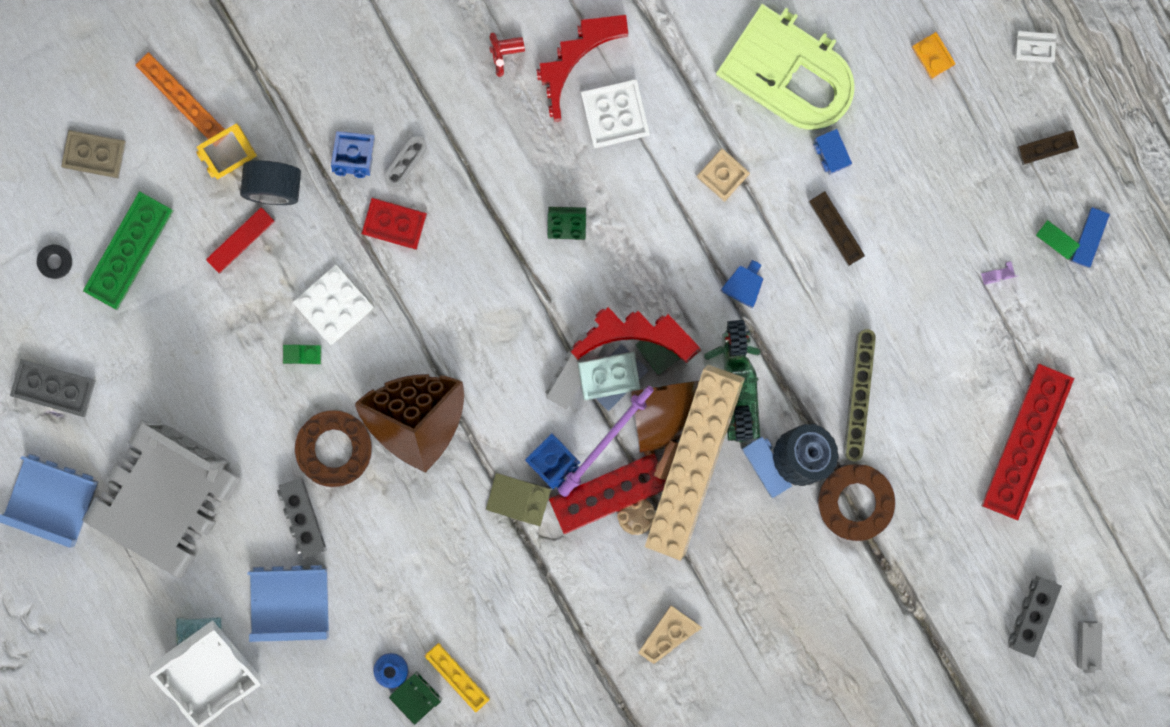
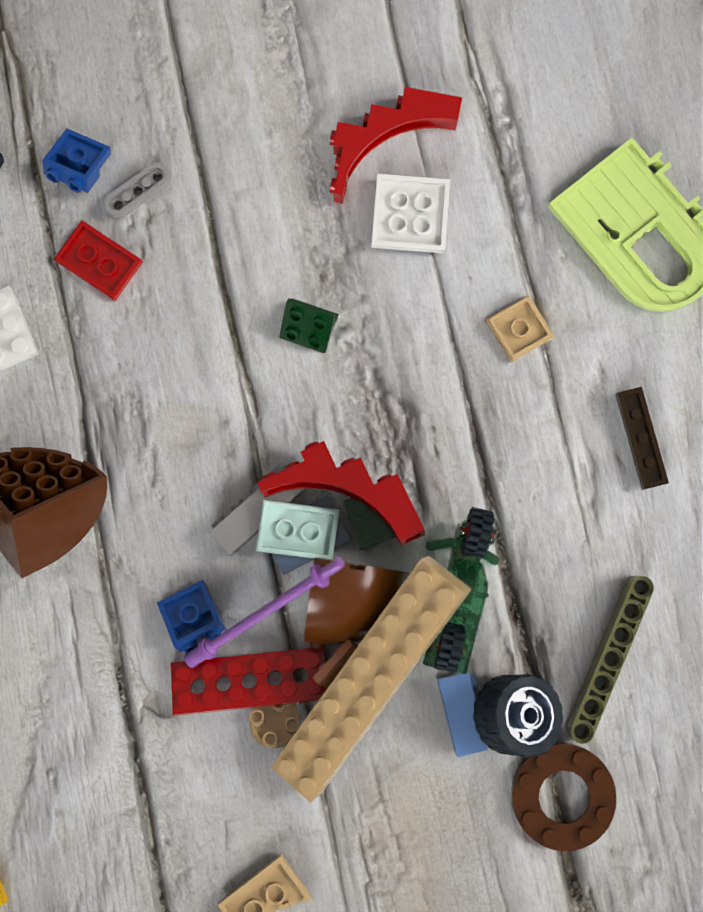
camera: 15 degrees right, 5 degrees down
(504, 47) = (301, 94): red piece -> none
(518, 499) = (132, 652): olive slope -> none
(744, 284) = (505, 471): blue torso -> none
(832, 152) = (664, 342): blue brick -> none

